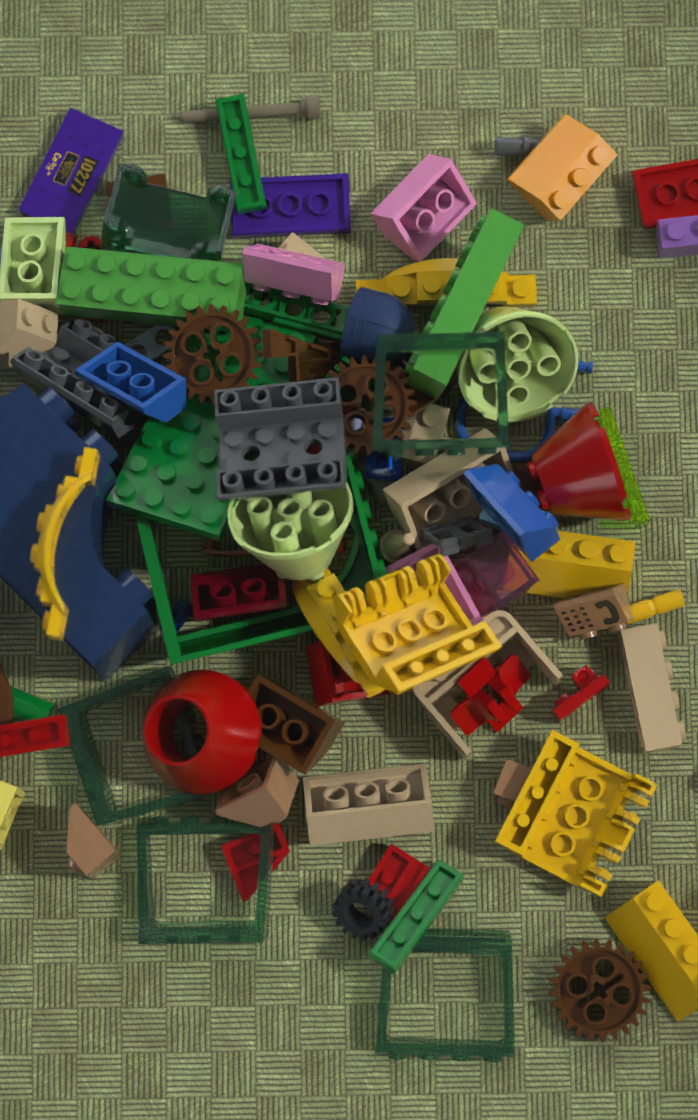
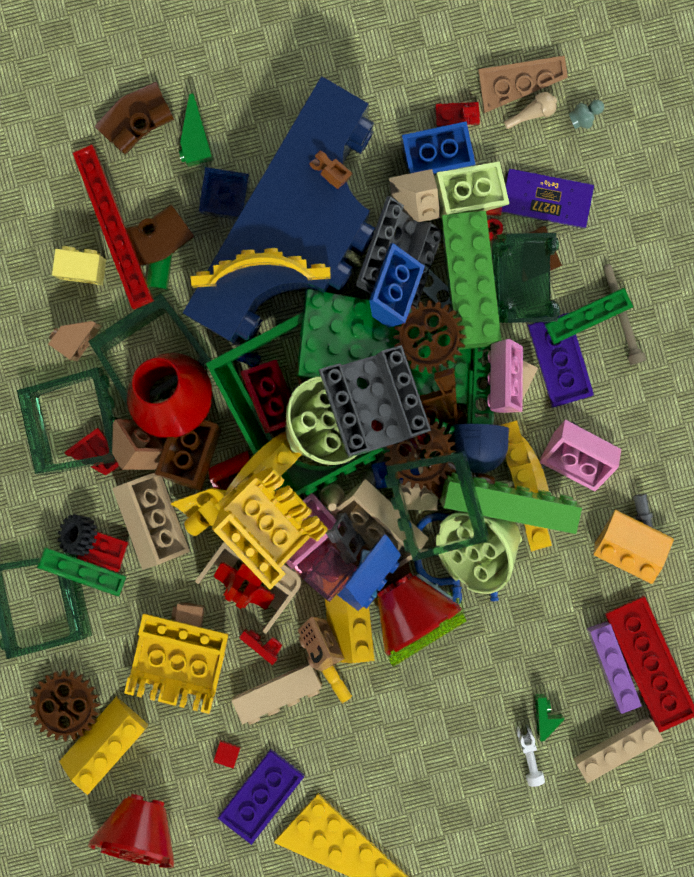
camera: 70 degrees right, 10 degrees up
(370, 726) = (200, 509): none -> yellow panel

